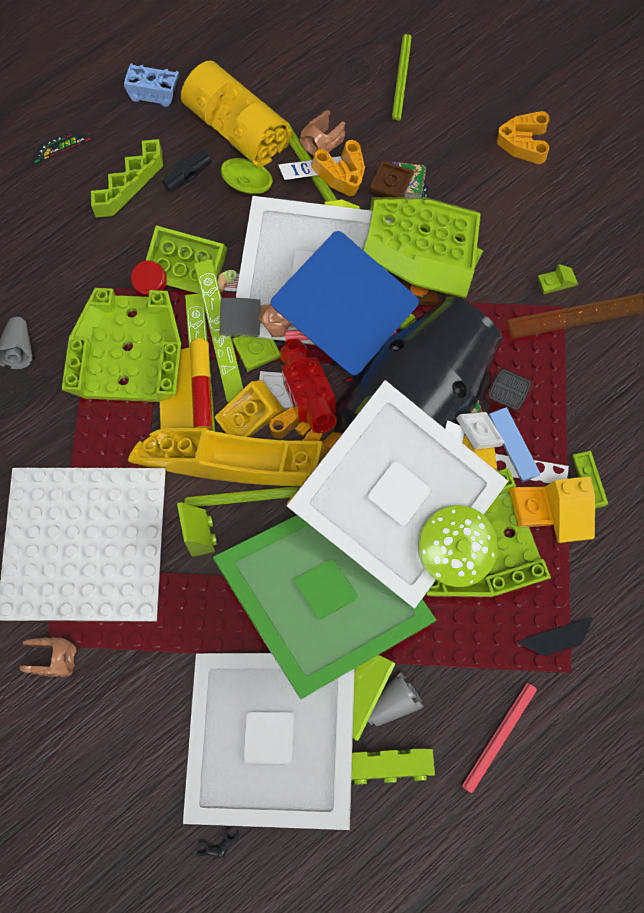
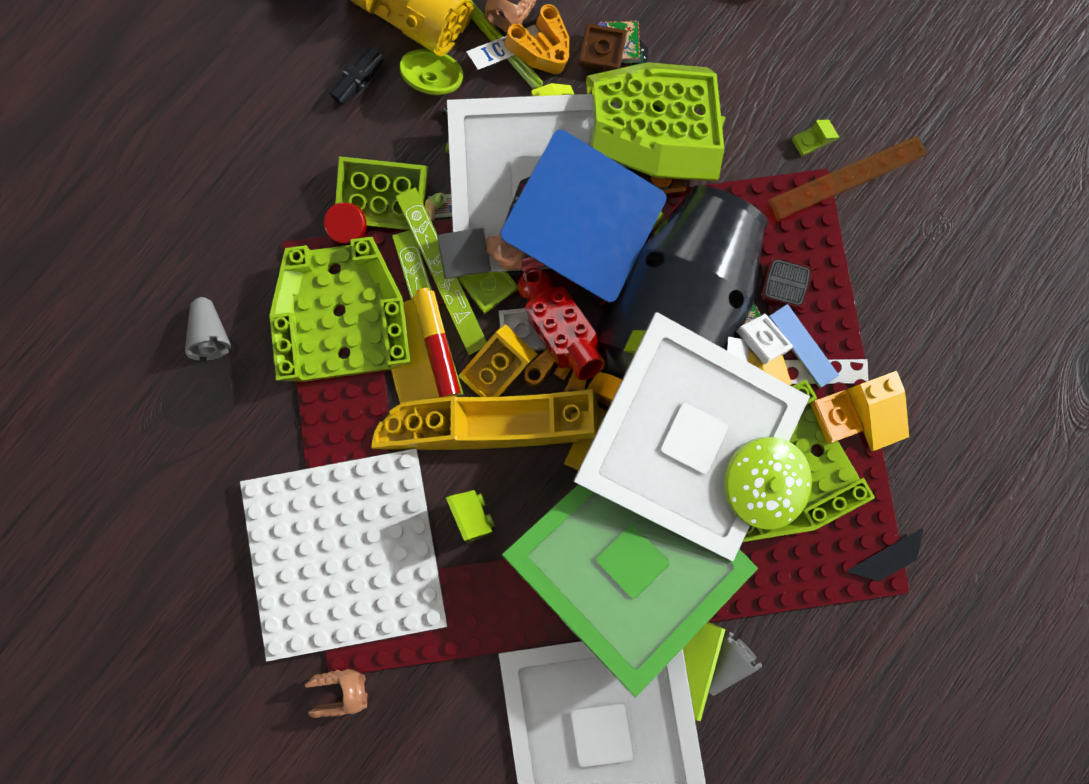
camera: 15 degrees left, 10 degrees up
(59, 145) = (195, 68): black sticker -> none
(126, 184) = (289, 108): lime brick -> none
(238, 497) = (508, 464): lime axle -> none
(392, 765) = (740, 735): lime brick -> none
(499, 738) = (846, 680): coral axle -> none
(586, 467) = (889, 361): lime tile -> none

